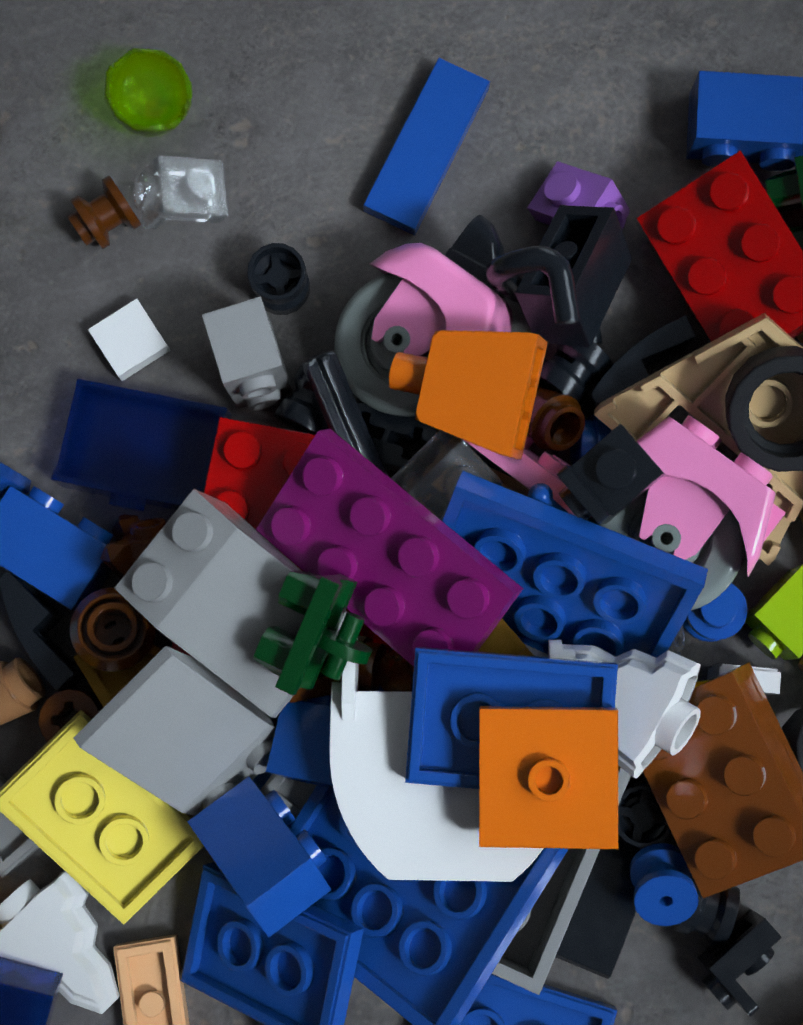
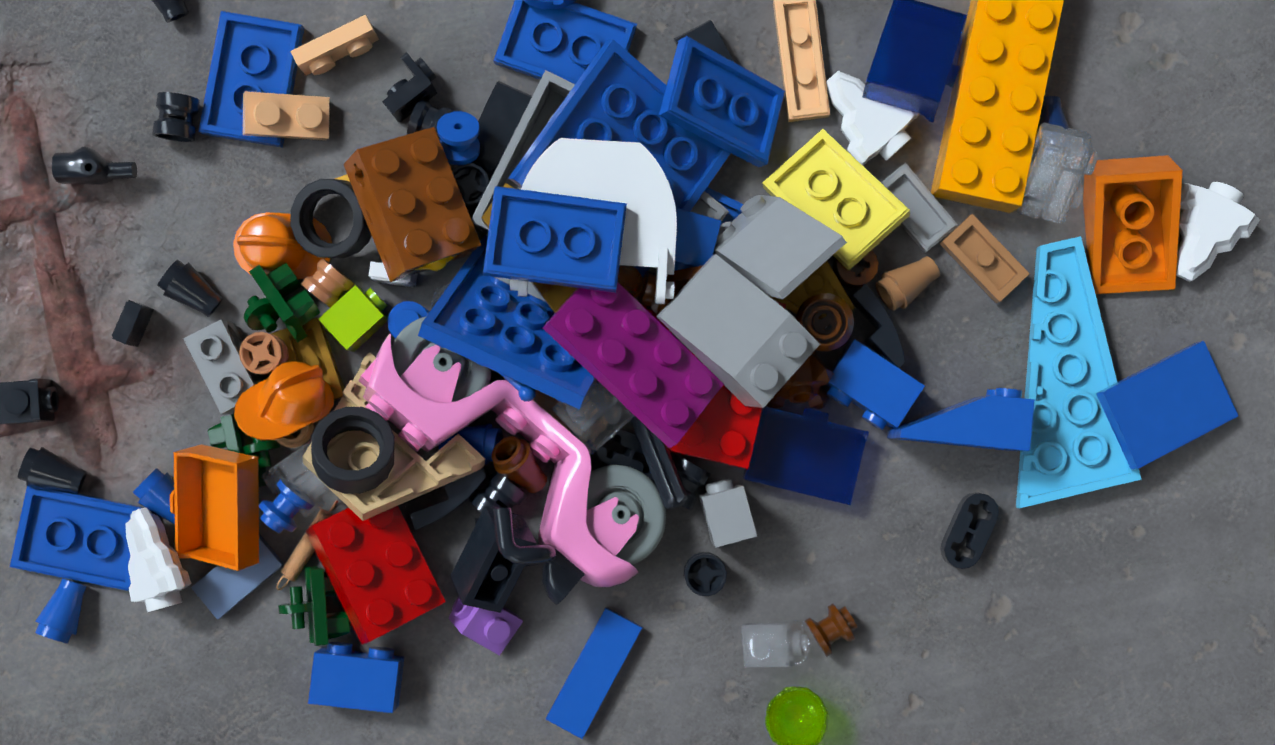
camera: 175 degrees right, 5 degrees up
(129, 339) = (814, 536): white tile -> none
(260, 854) = (726, 166): blue brick -> none
(301, 657) = (695, 289): dark green hips -> none
(476, 385) = (567, 469): orange torso -> none
(548, 777) = (532, 201): orange plate -> none
(608, 477) = (480, 402): black bracket -> none
(650, 703) = (462, 253): white rock -> none

